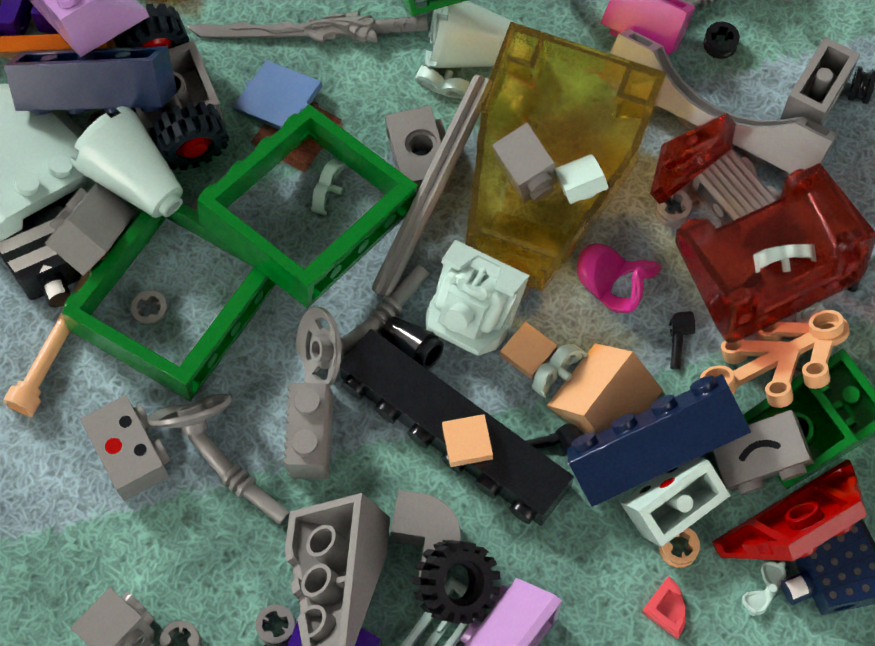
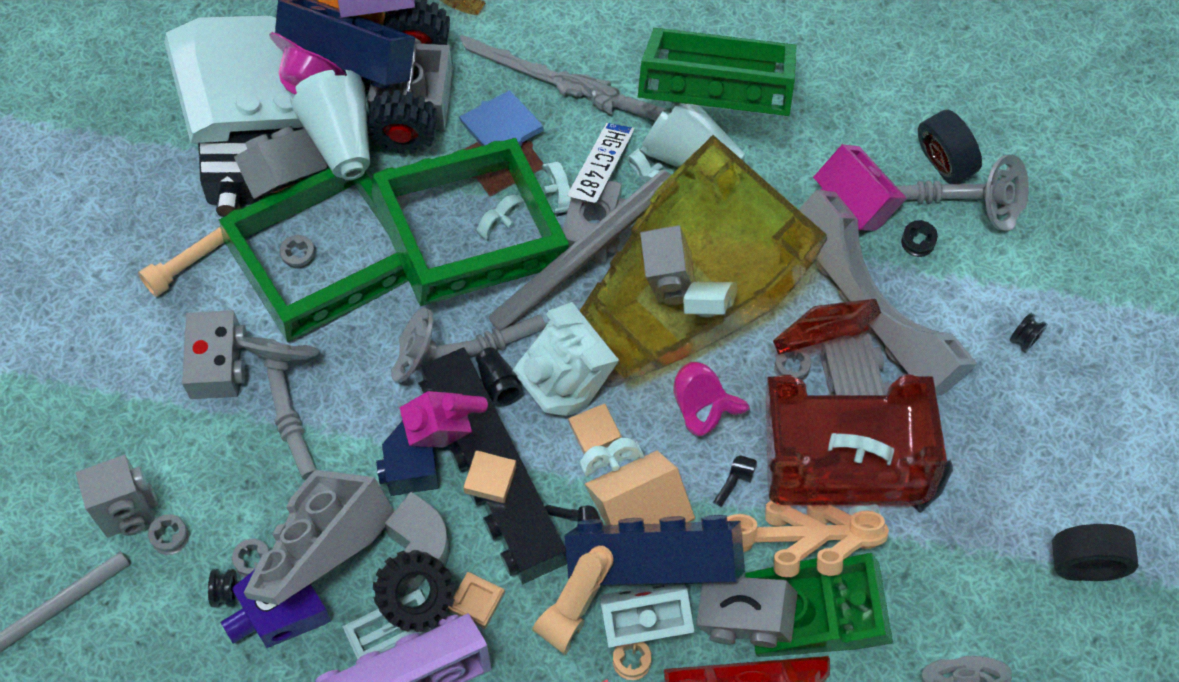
camera: 25 degrees right, 5 degrees down
(60, 124) = (299, 63): none -> dark pink piece
(308, 430) = (367, 409): light grey brick -> none
(367, 131) = (560, 185): none -> light aqua piece
(374, 455) = (406, 466): none -> dark blue slope
(392, 406) = (439, 417): none -> dark pink brick
(398, 94) = (600, 162): none -> white sticker
(512, 559) = (477, 598): none -> light nougat tile
(602, 538) = (564, 618): none -> light nougat piece
(821, 82) = (986, 313): light grey brick -> none

